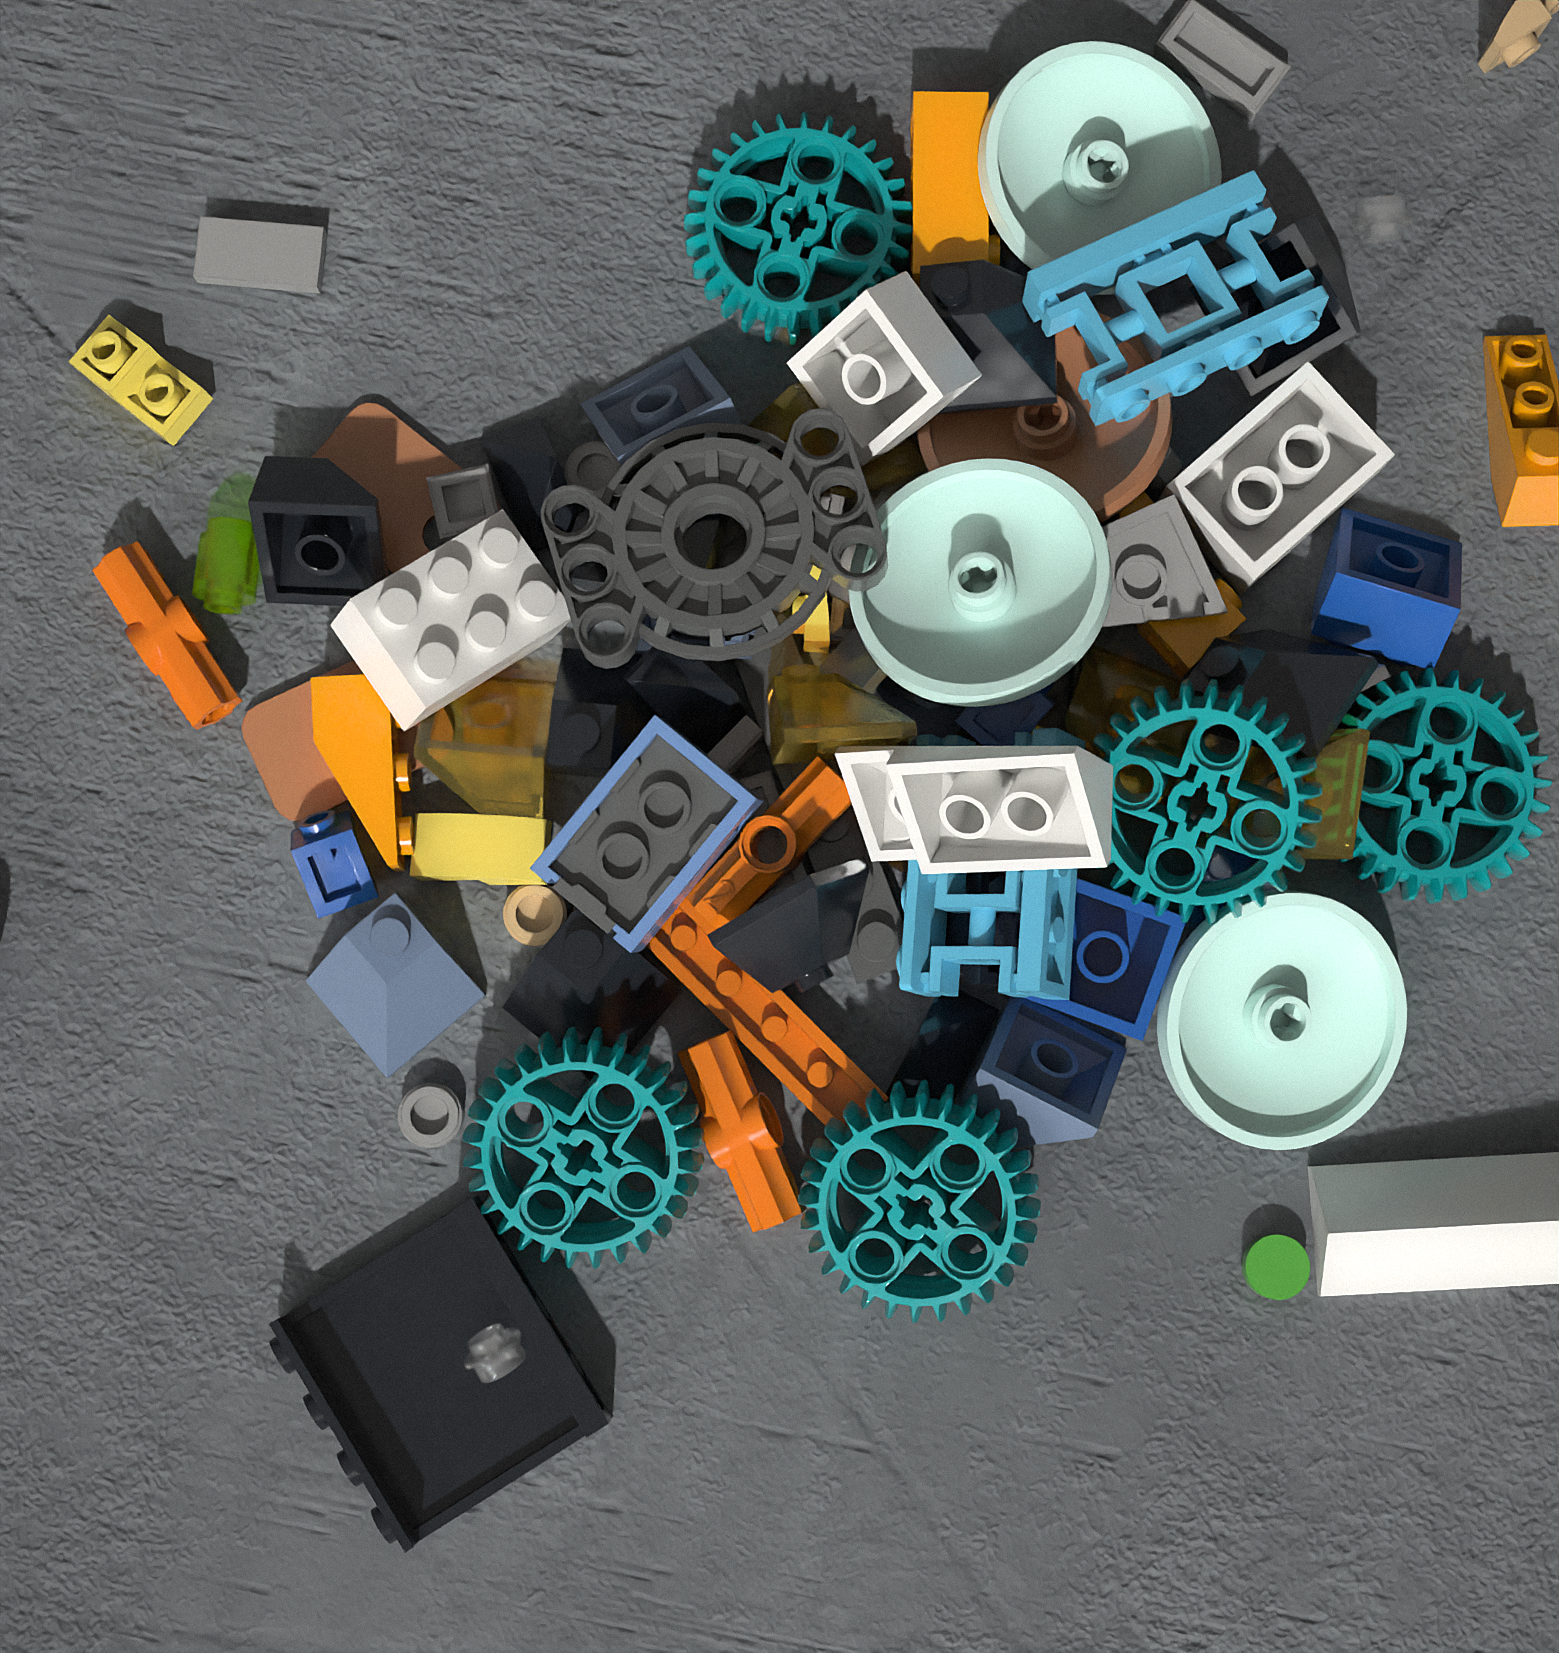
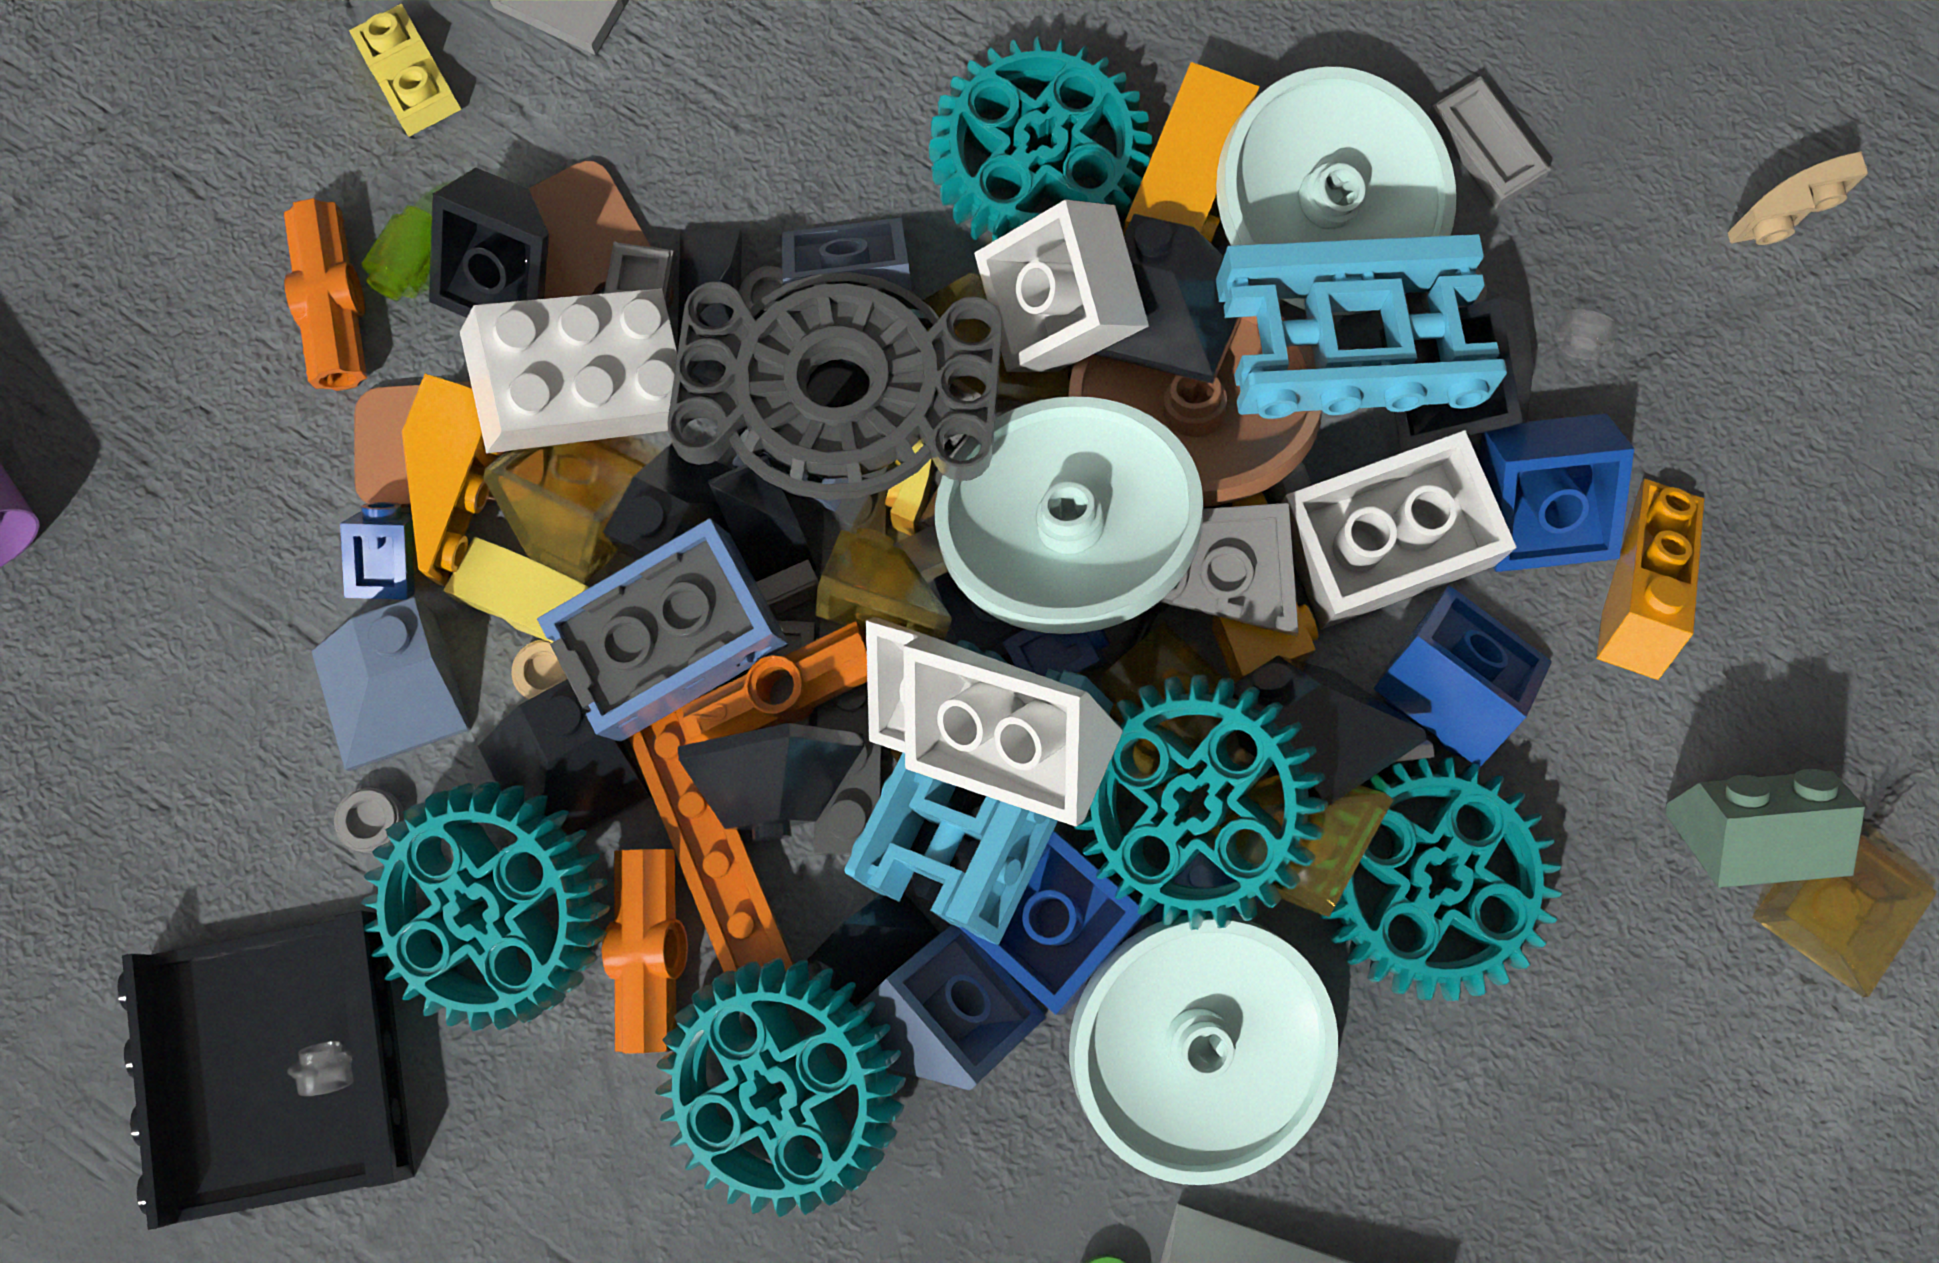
camera: 25 degrees right, 5 degrees down
(1411, 378) = (1560, 489): none -> blue slope

